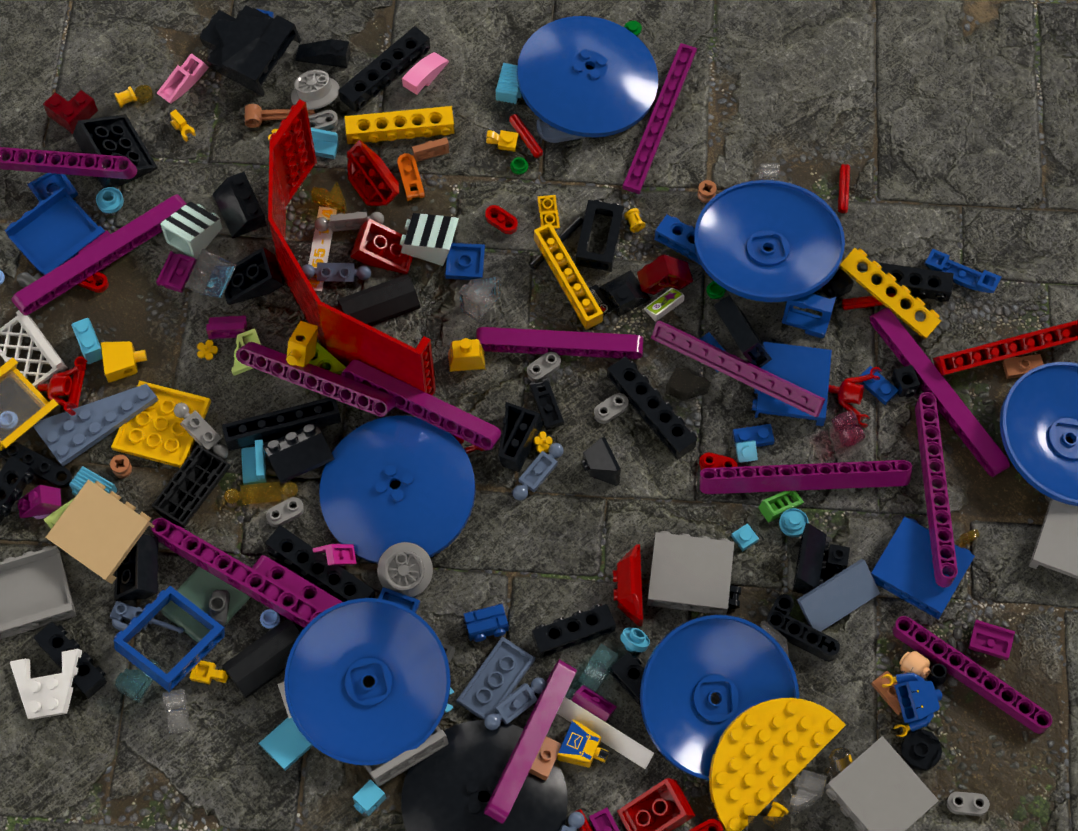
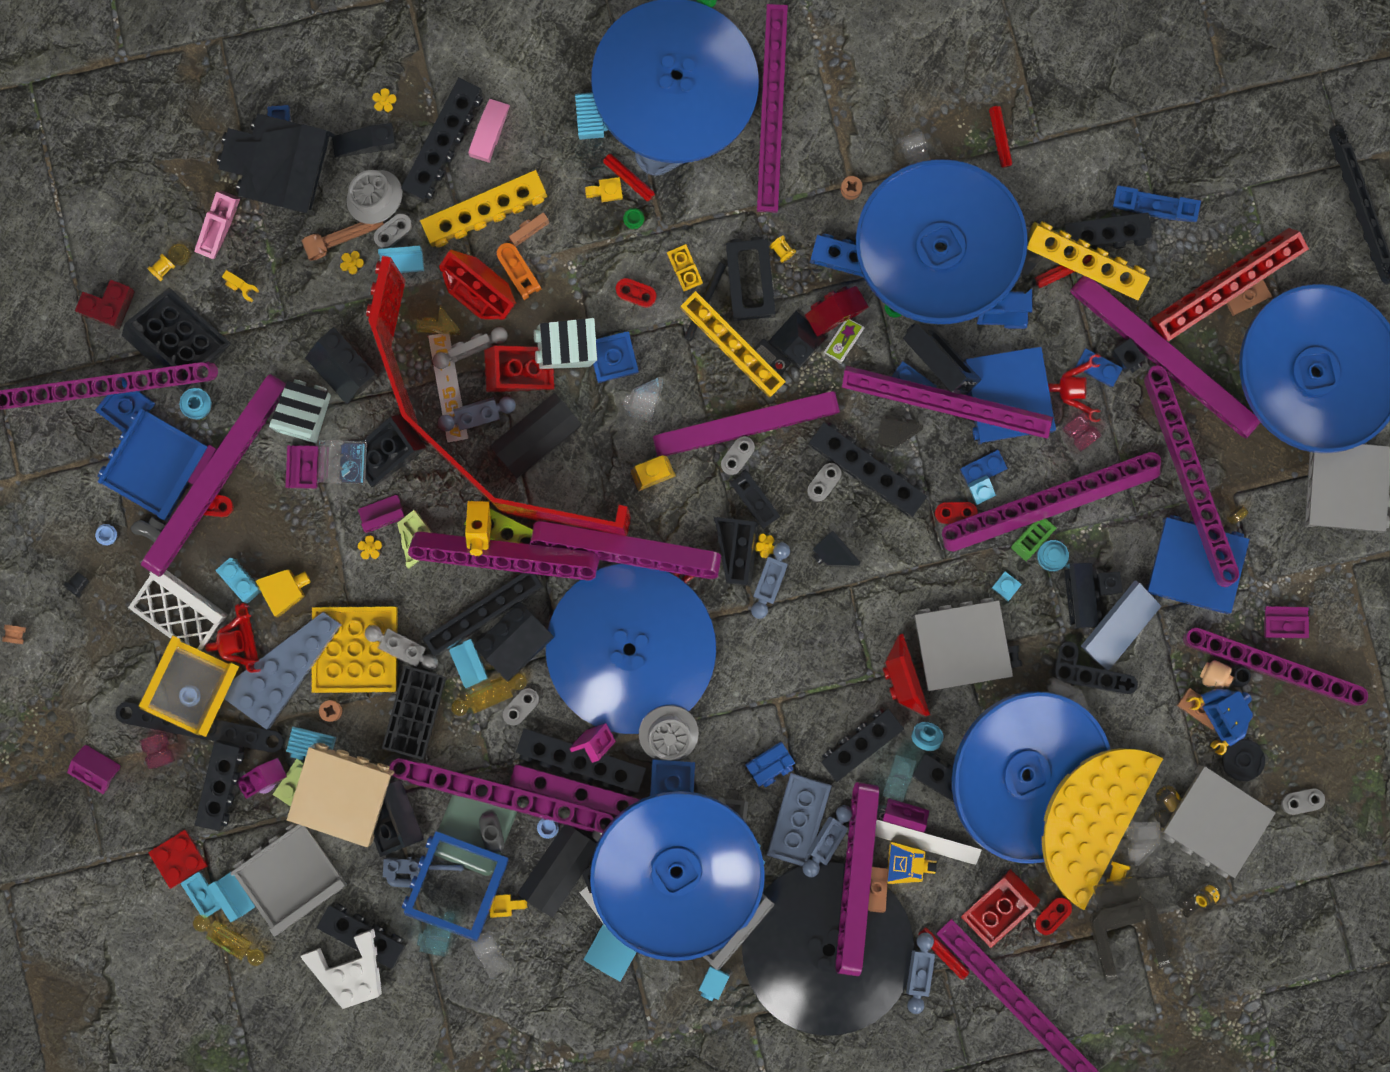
camera: 15 degrees left, 20 degrees up
(350, 31) = (384, 100): none -> yellow plant

